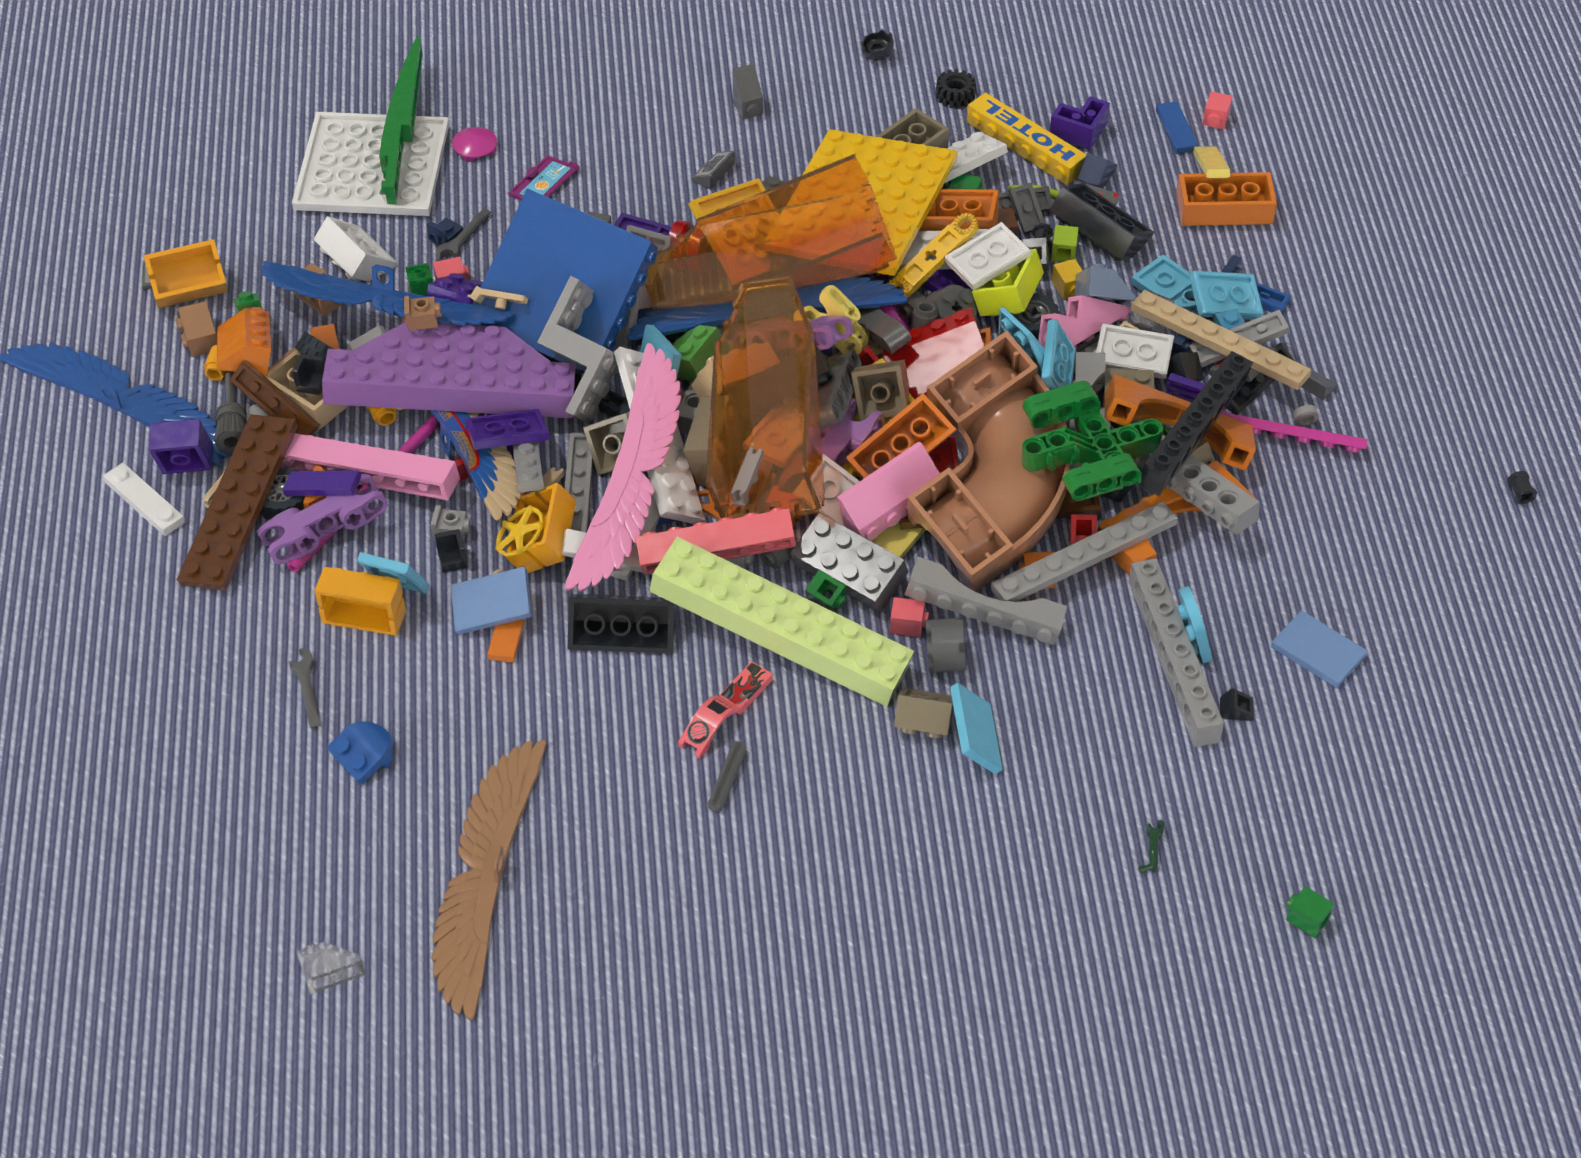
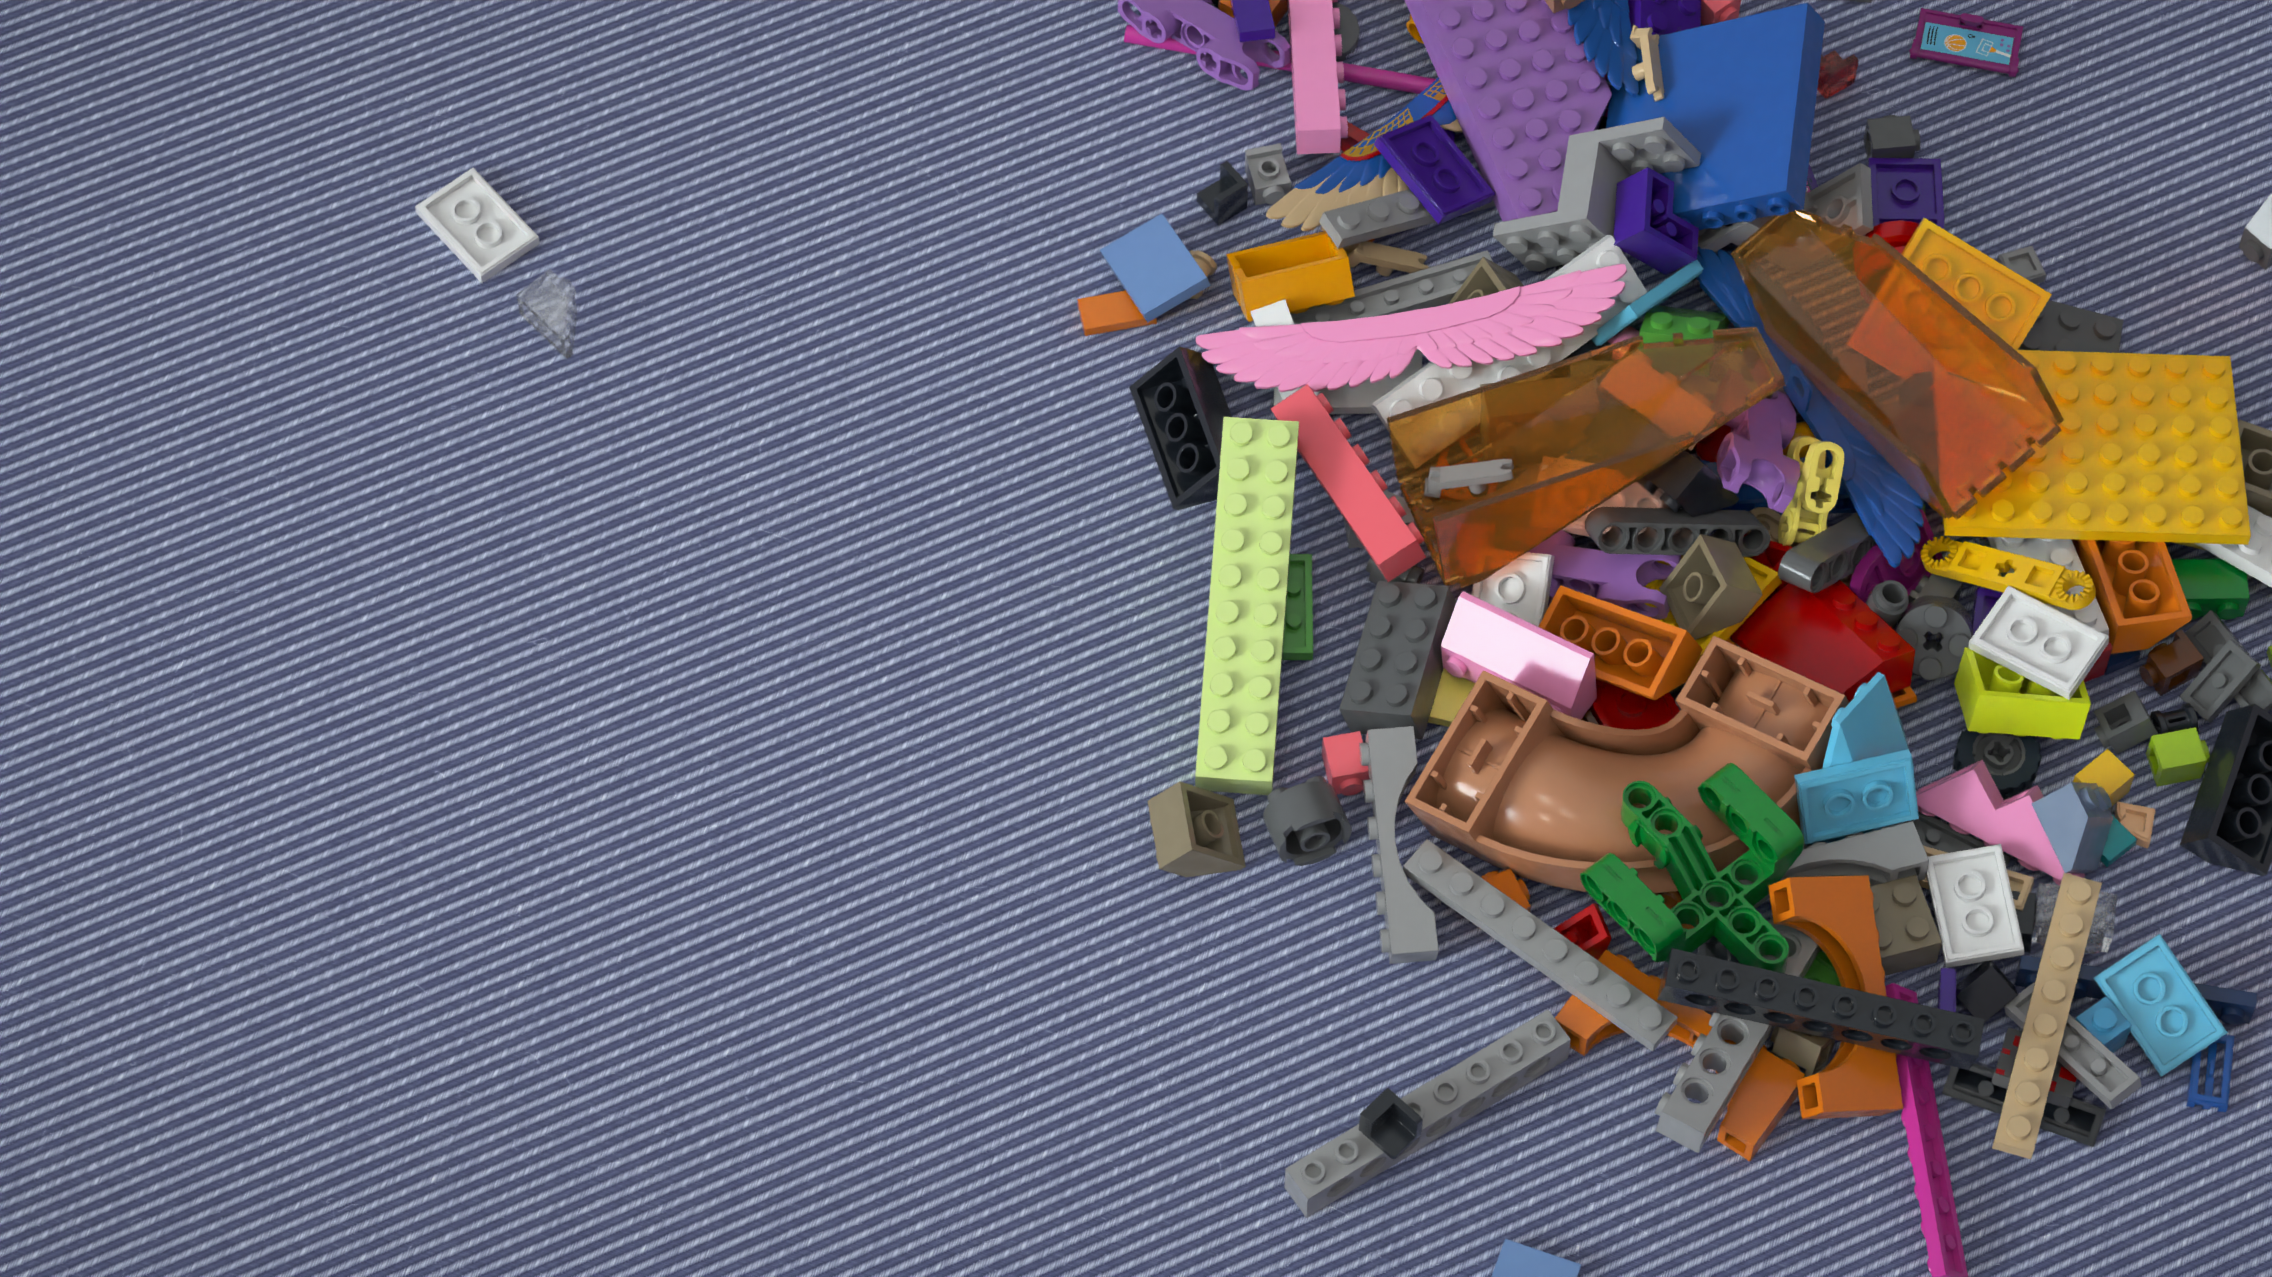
camera: 70 degrees right, 10 degrees up
(219, 998) = (477, 225): none -> white tile
(303, 672) = (971, 112): dark grey piece -> none
(360, 600) = (1089, 123): light orange piece -> none
(363, 749) = (874, 224): blue slope -> none
(385, 567) = (1136, 138): medium azure tile -> none
(471, 898) = (723, 423): medium nougat piece -> none
(519, 532) = (1265, 251): yellow wheel -> none
(615, 328) = (1647, 223): none -> dark purple brick
(714, 168) = (2104, 245): dark grey slope -> none
(716, 709) = (1117, 601): piece -> none
(727, 776) = (999, 637): dark grey axle -> none
(825, 583) = (1340, 641): green brick -> none
(976, 728) = (1181, 898): medium azure tile -> none
(1154, 835) = (1090, 1172): dark green piece -> none
(1168, 280) = (2167, 909): medium azure plate -> none
(1191, 657) = (1390, 1124): none -> black panel
(1194, 624) = (1468, 1115): medium azure plate -> none
(1236, 706) = (1375, 1224): black slope -> none
(1305, 415) = (1971, 1183): light grey tile -> none
(1318, 384) = (2062, 1175): dark grey slope -> none

